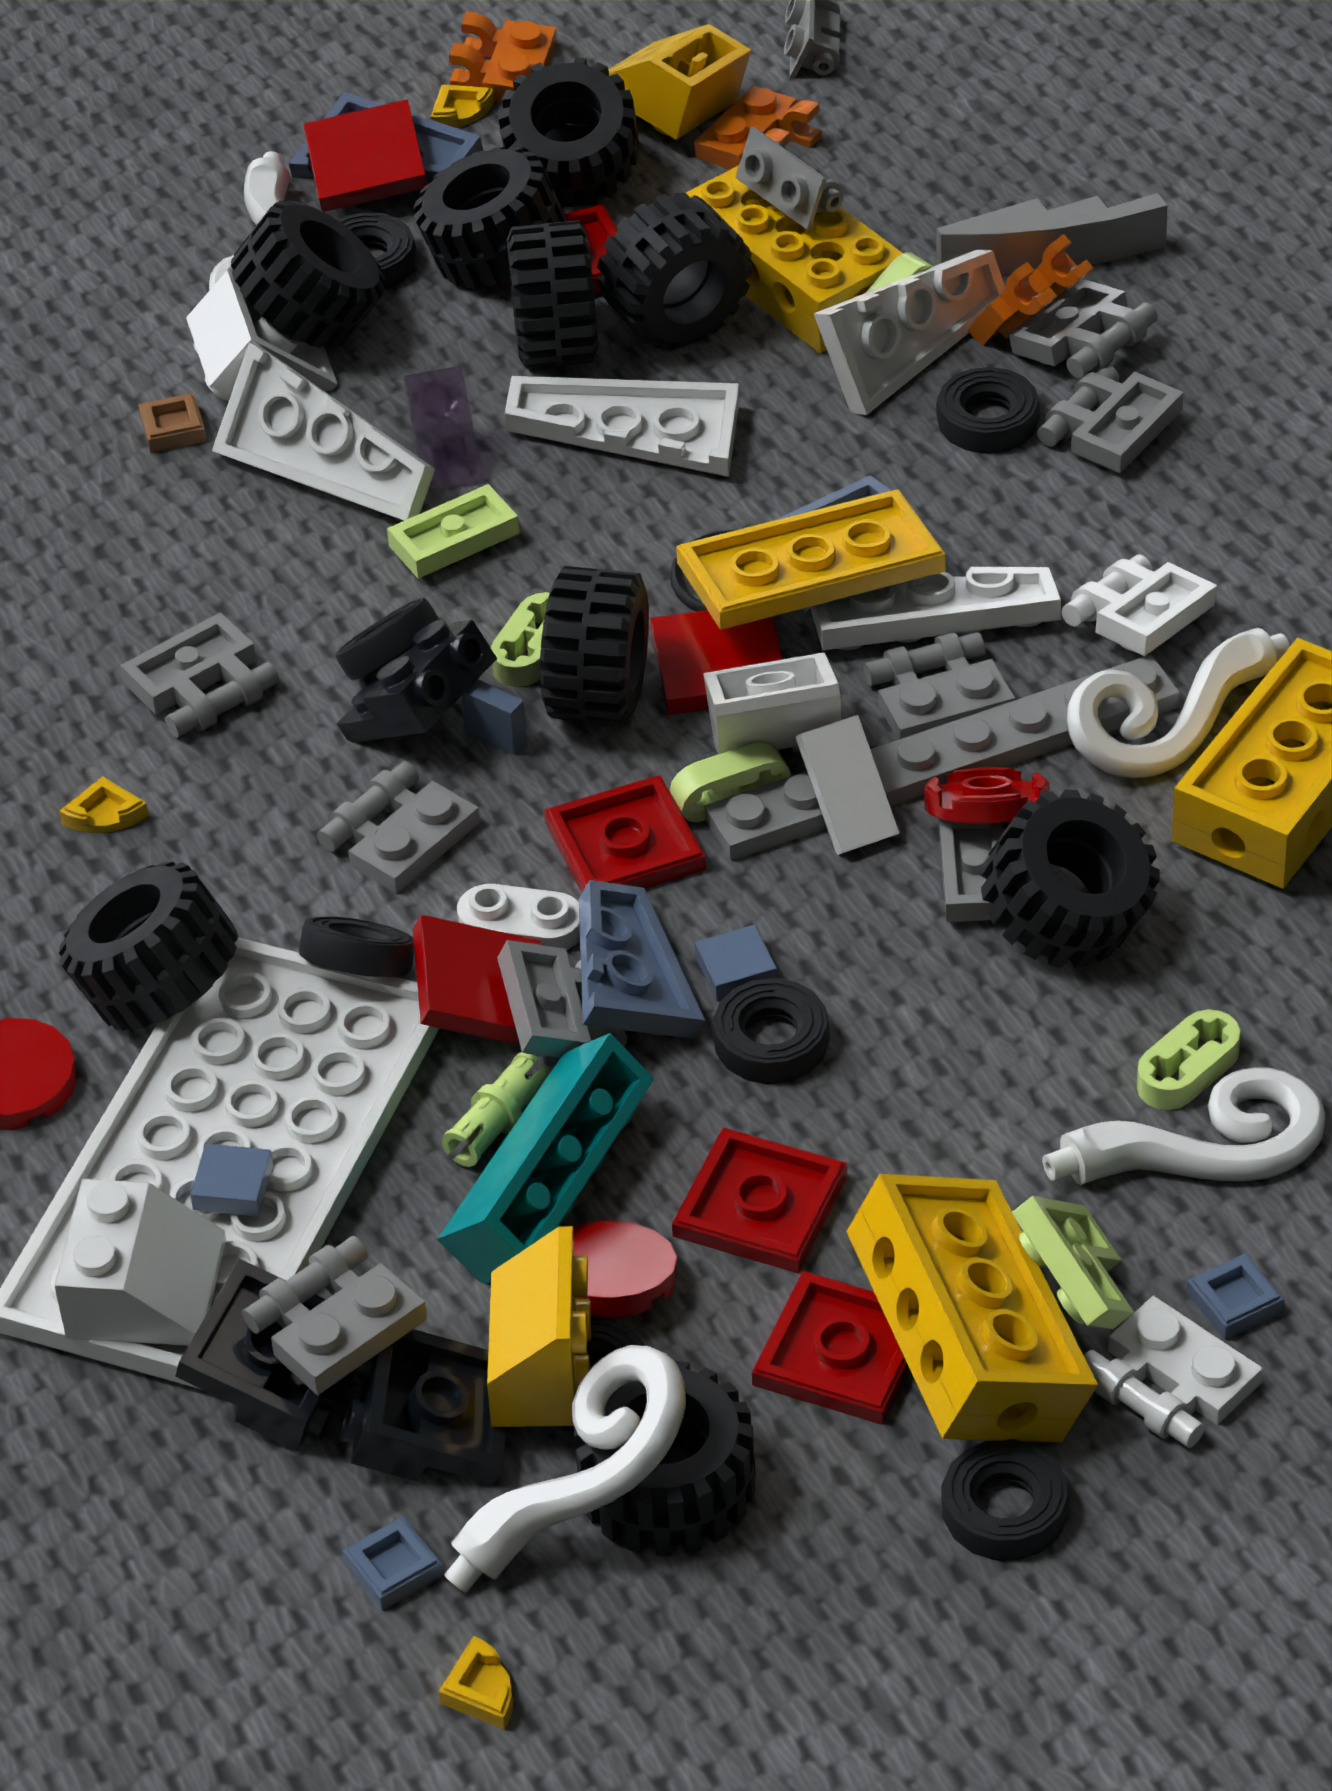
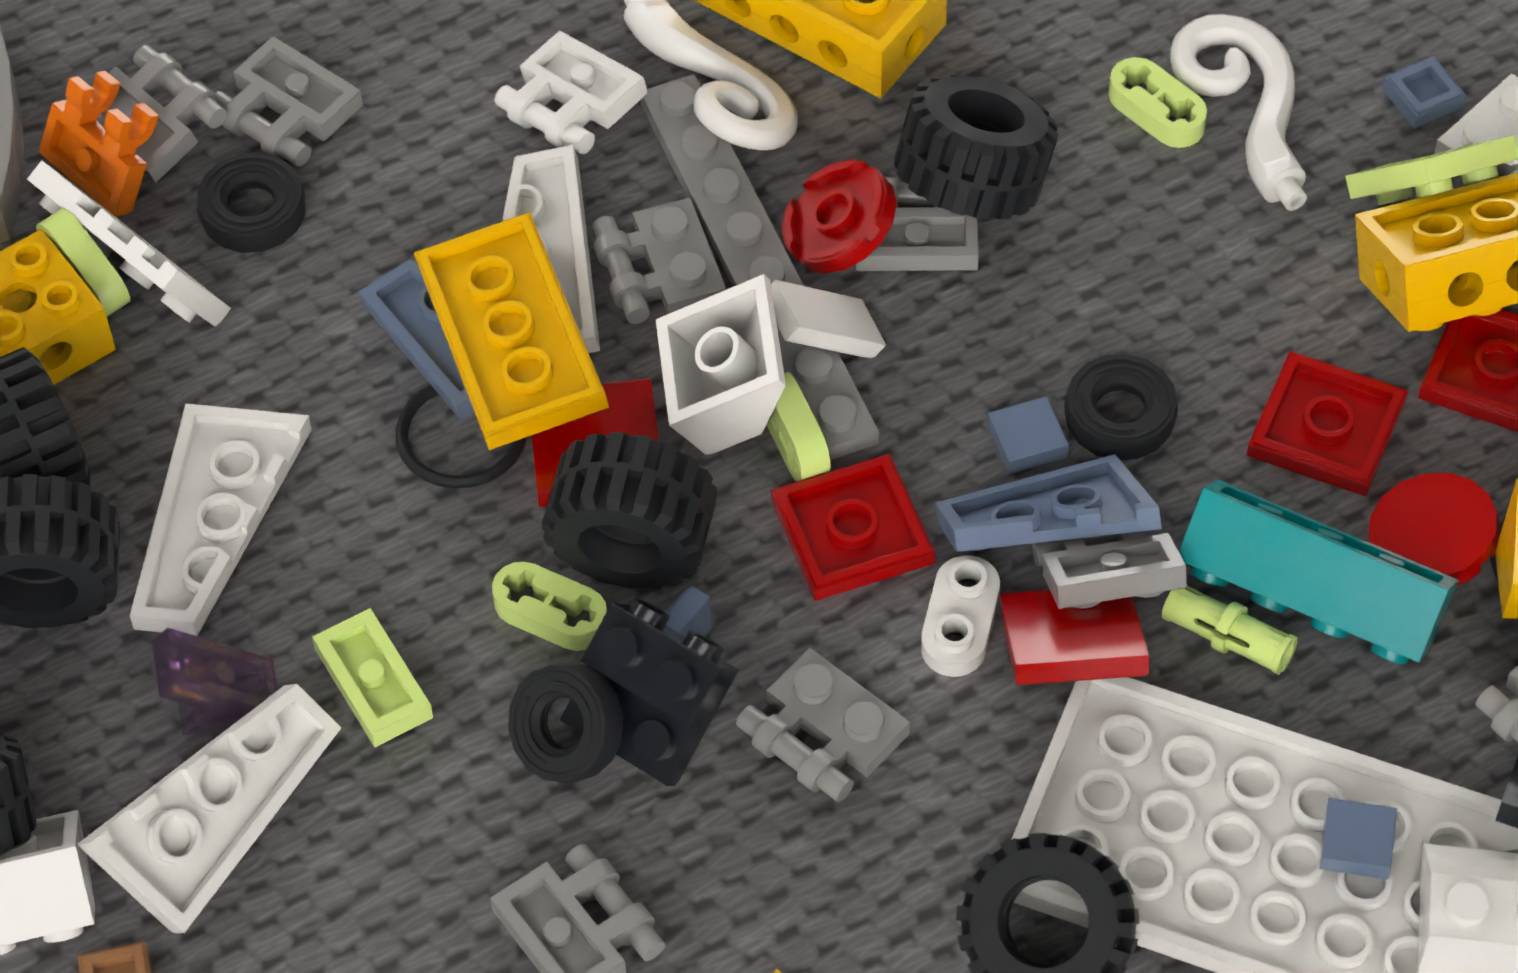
camera: 90 degrees left, 10 degrees up
(356, 946) = (1044, 761): black tyre -> none

